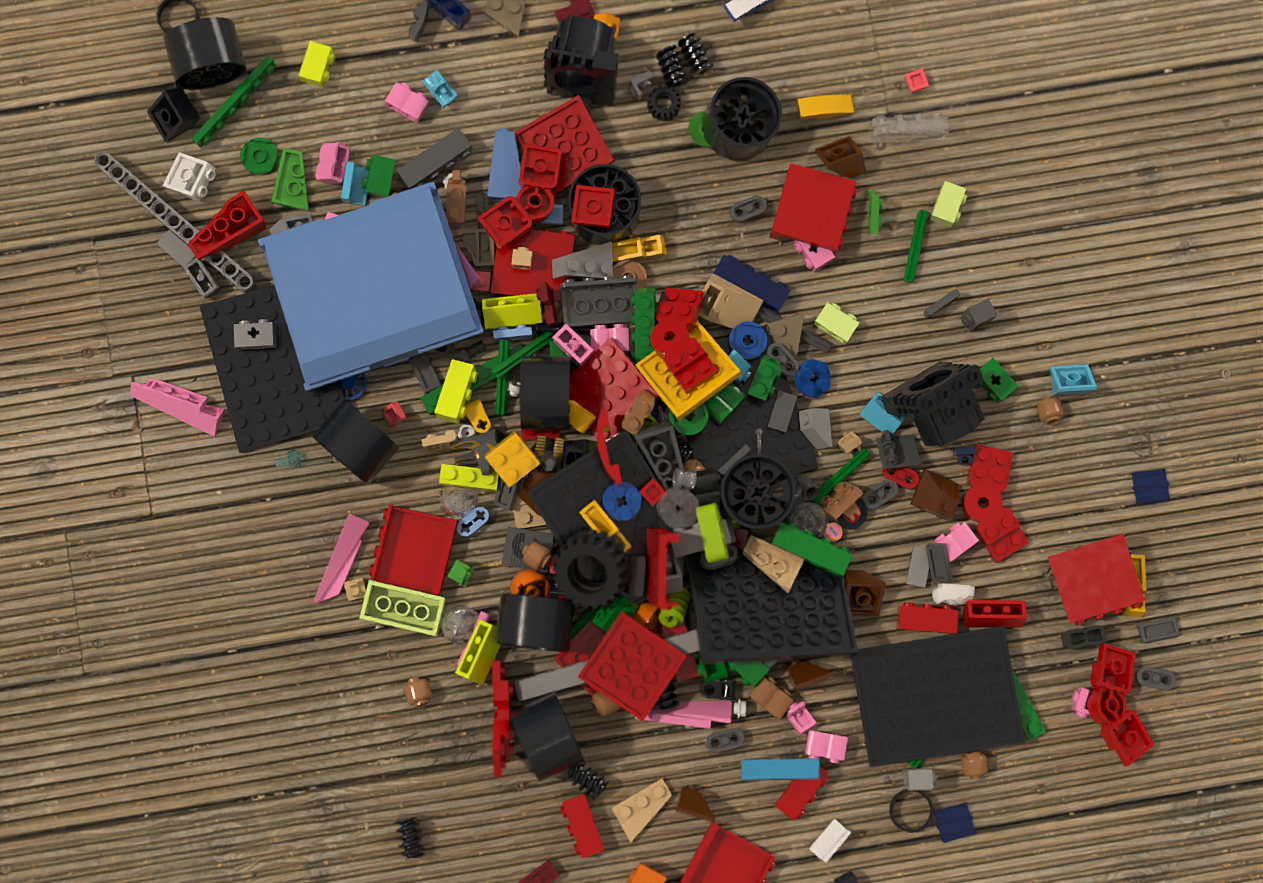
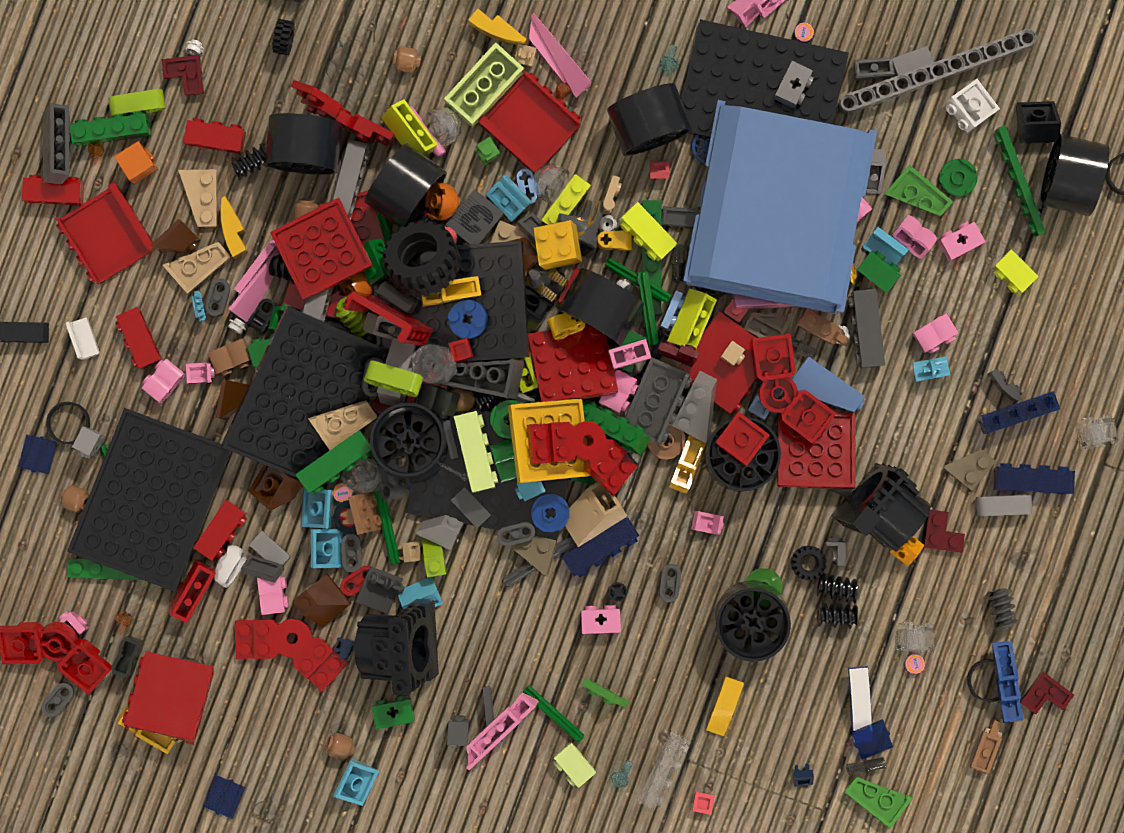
camera: 125 degrees right, 5 degrees up
(202, 356) = (804, 32): none -> bright pink tile
(228, 227) = (905, 114): red wedge -> none
(308, 114) = (971, 236): none -> bright pink brick
(345, 627) = (496, 28): none -> yellow slope
(369, 538) = (563, 90): none -> clear orange hinge
(458, 814) = (283, 37): none -> black tyre
(492, 531) = (508, 197): none -> medium azure plate
(536, 556) = (463, 221): medium nougat head -> none
(613, 470) = (541, 338): red slope -> none
(635, 414) = (536, 376): medium nougat brick -> none
(656, 762) = (232, 229): none -> yellow slope
(678, 204) = (707, 522): none -> bright pink bracket
(684, 478) = (456, 383): clear wheel -> none
(707, 774) = (197, 267): none -> tan wing
(735, 430) = (474, 451): none -> yellowish green brick
(743, 751) = (198, 306): none -> medium azure gear
(764, 377) = (510, 510): green brick -> none
(780, 769) = (165, 329): dark azure tile -> none
(781, 244) = (620, 592): none -> black wheel
(814, 208) = (636, 640): red panel -> none
(821, 382) = (477, 556): blue plate -> none
(836, 323) = (522, 602): yellowish green brick -> none
(842, 157) = (670, 693): reddish brown slope -> none
(844, 419) = (433, 558): none -> lime slope
(847, 10) = (803, 778): none -> dark blue tile
(862, 543) = (317, 509): none -> medium azure slope
(889, 517) = (326, 548): none -> medium azure slope
(936, 161) = (619, 778): none -> clear light blue plate
(956, 281) = (499, 728): none -> bright pink wedge
(1053, 660) = (124, 618): none -> clear orange hinge
(1158, 629) = (97, 728): dark grey tile -> none

